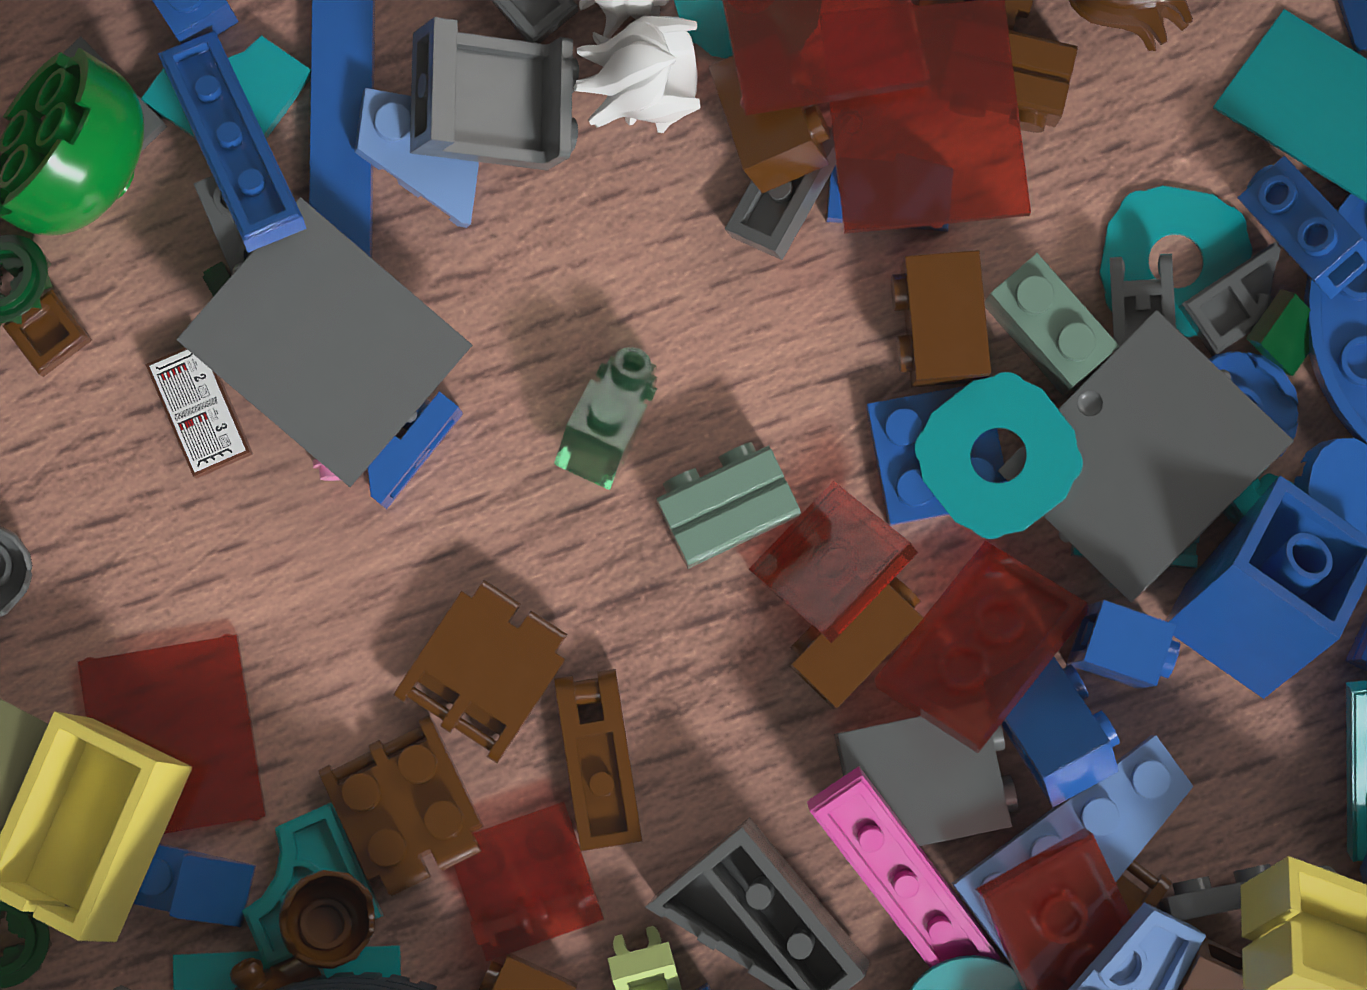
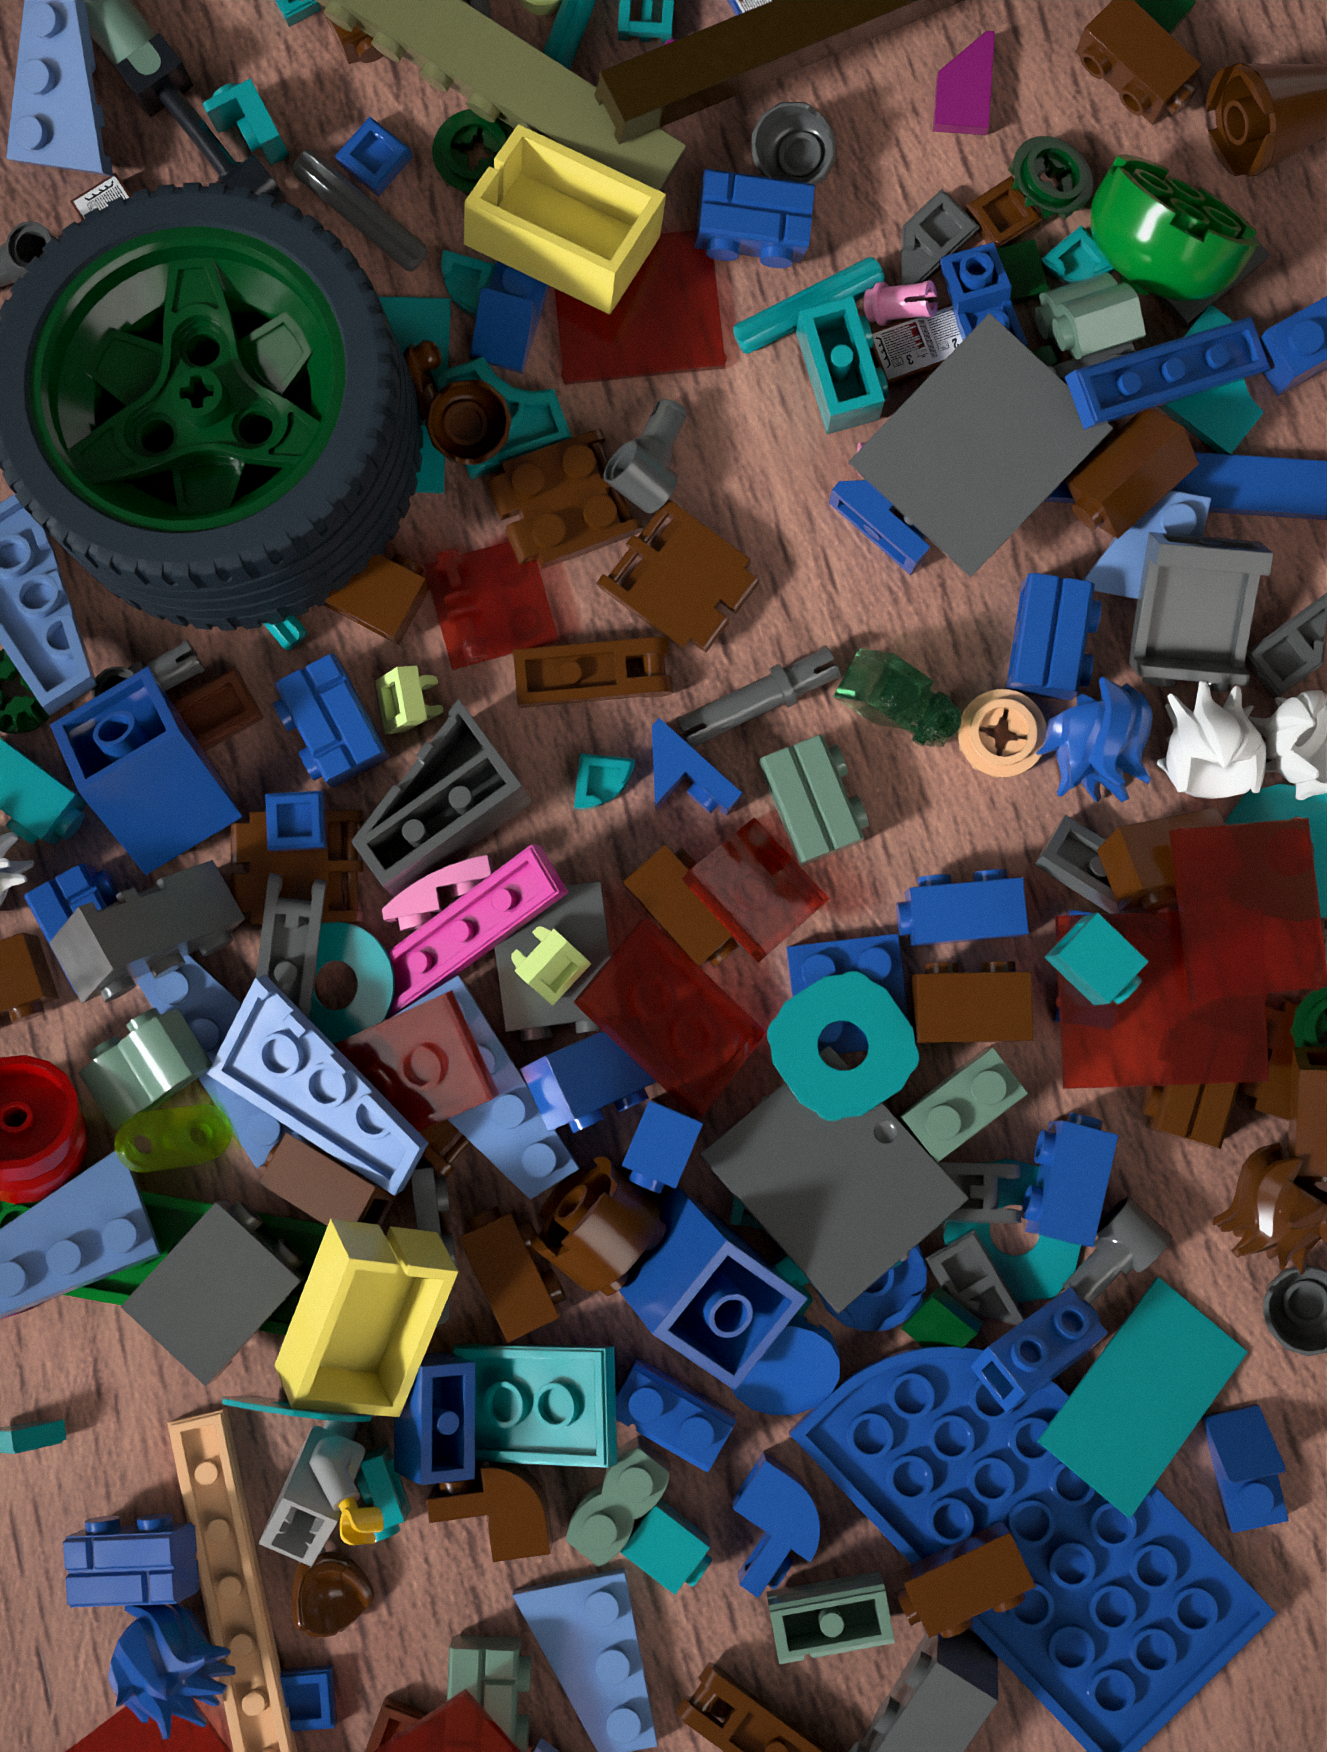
camera: 100 degrees right, 0 degrees up
(68, 612) = (753, 218): none -> blue brick
(80, 411) = (932, 233): none -> dark grey tile
(95, 250) = (1075, 258): none -> teal tile
(115, 316) = (1024, 271): none -> dark green tile
(145, 351) = (979, 287): none -> blue slope
(152, 936) = (464, 280): none -> teal tile
(156, 443) = (898, 302): none -> bright pink pin
(162, 544) = (783, 316): none -> teal axle
(168, 229) = (1090, 315): none -> sand green brick
(235, 503) = (840, 364): none -> teal brick
(345, 175) = (1131, 473): none -> reddish brown brick
(363, 719) = (642, 465): none -> dark grey pin
(528, 252) = (1052, 637): none -> blue brick
(615, 572) = (759, 697): none -> dark grey pin
(618, 281) = (1023, 719): none -> light nougat gear
(643, 193) = (1101, 740): none -> blue hair
(693, 660) = (676, 761): none -> blue slope
(717, 742) = (601, 780): none -> teal tile
(839, 332) = (963, 911): none -> blue brick
(869, 931) = (424, 898): none -> bright pink slope
(894, 184) = (1098, 961): none -> teal brick
(939, 779) = (551, 965): none -> yellowish green tile
(1122, 204) = (1070, 1180): none -> blue brick
(1181, 142) = (1125, 1242): none -> dark grey pin
(1217, 709) = (598, 1226): none -> reddish brown brick
(1272, 803) = (510, 1272): none -> reddish brown brick

